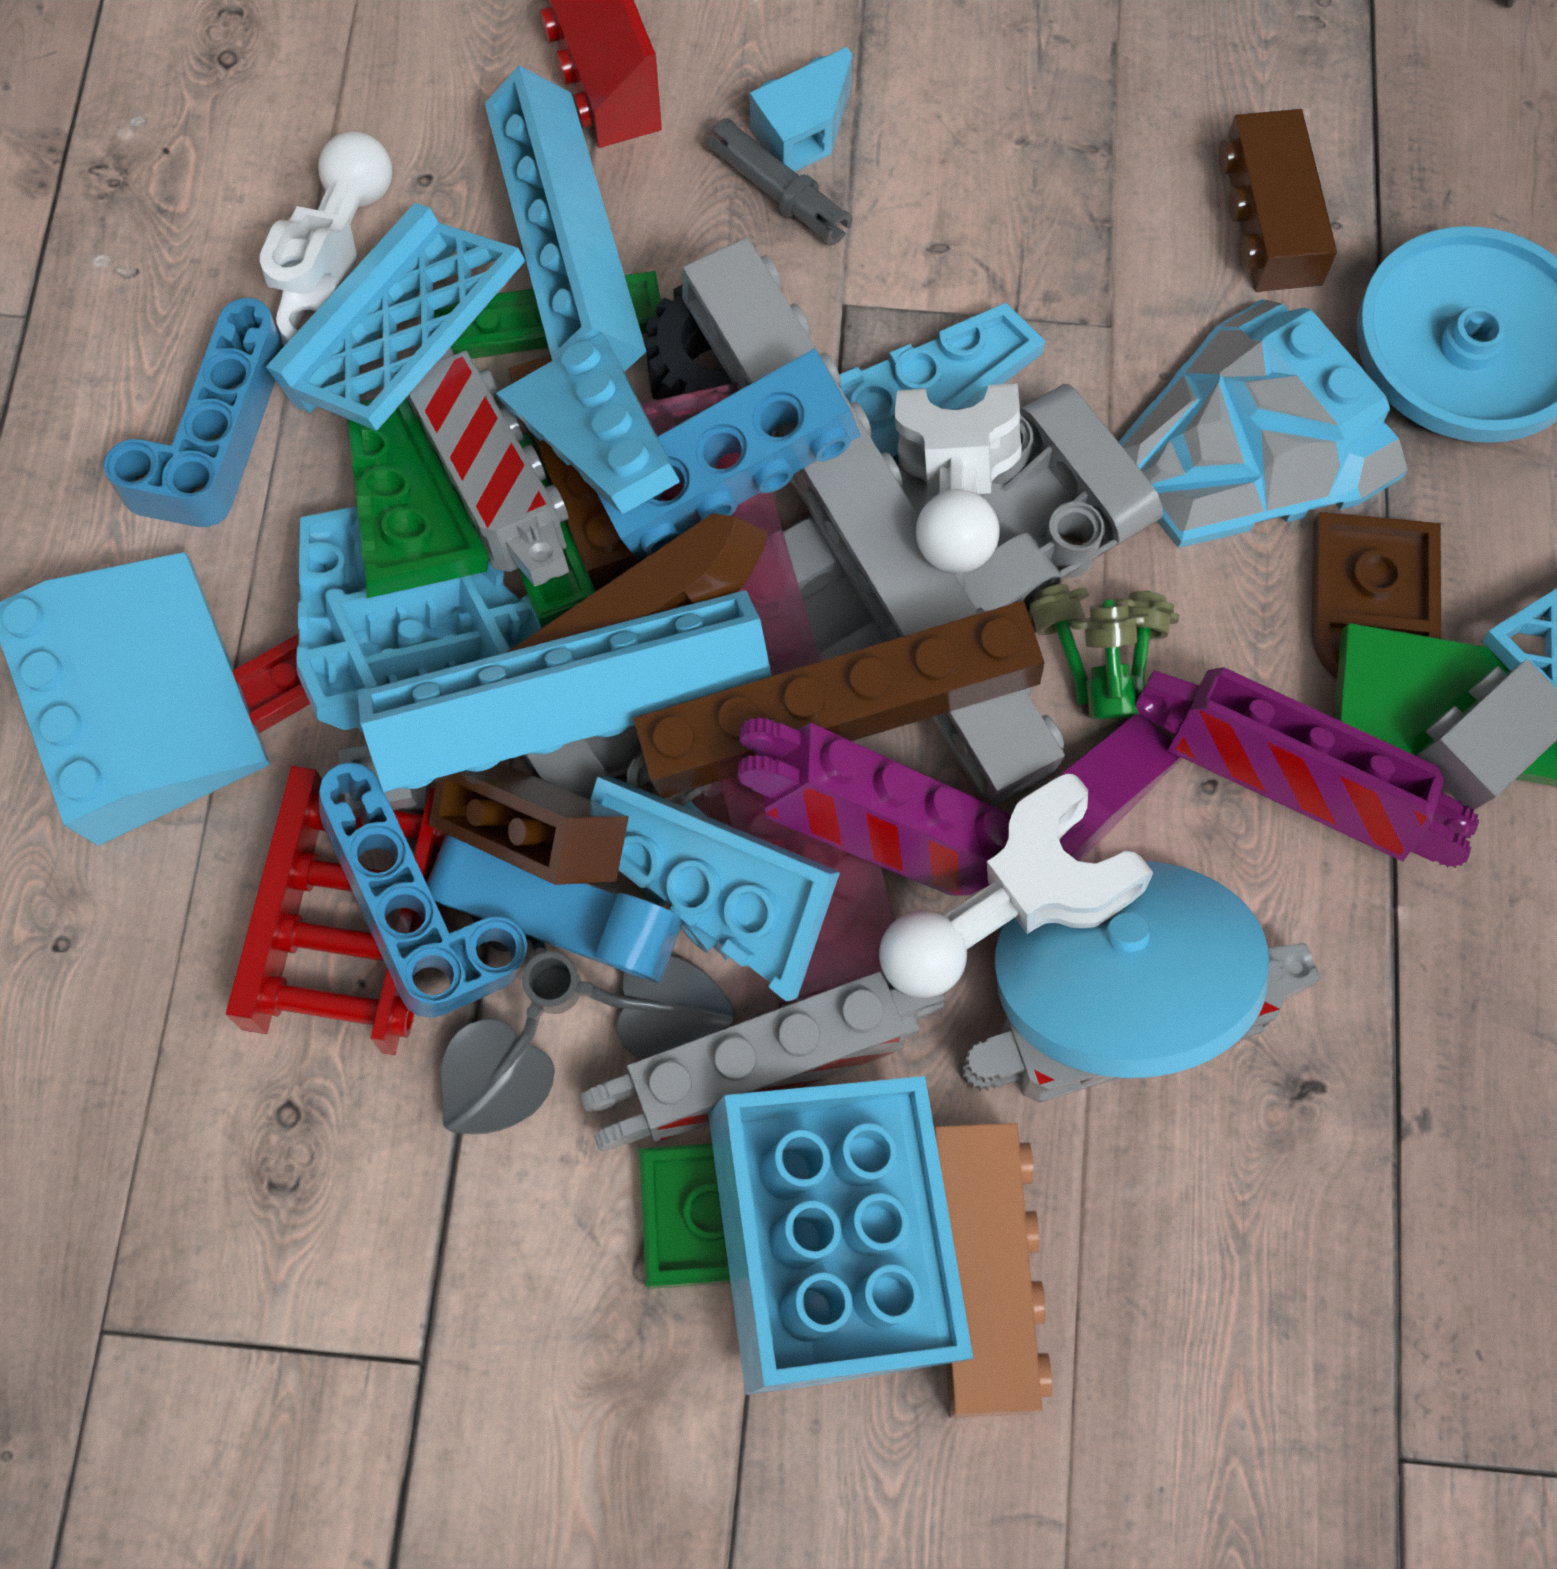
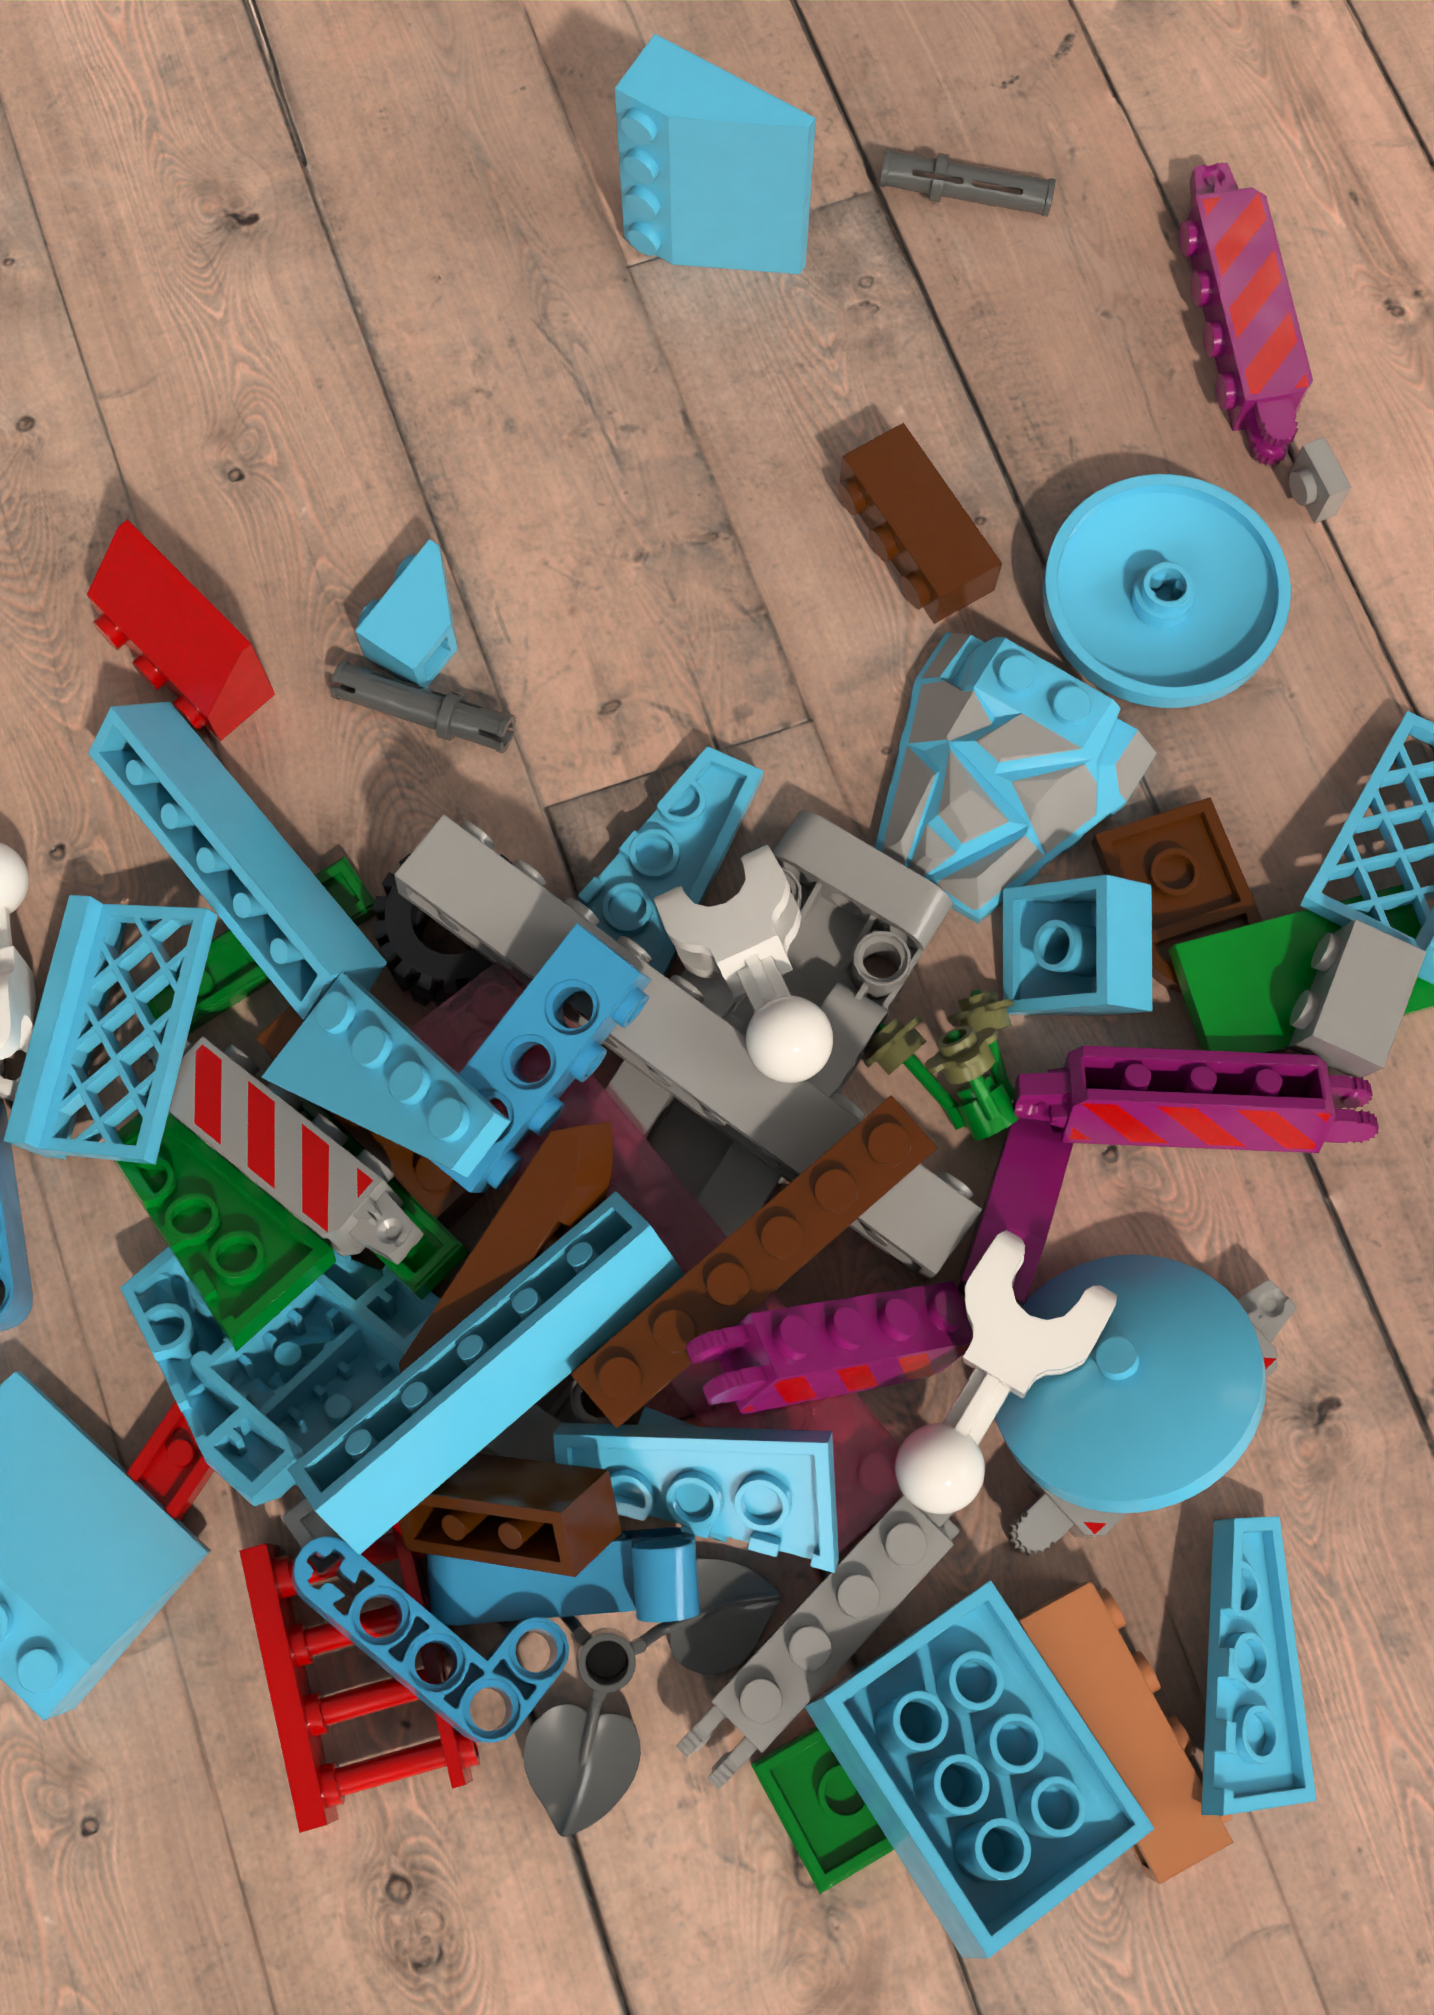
camera: 25 degrees left, 5 degrees up
(1124, 1293) = (1254, 1694): none -> medium azure wing
(1260, 594) = (1078, 947): none -> medium azure slope

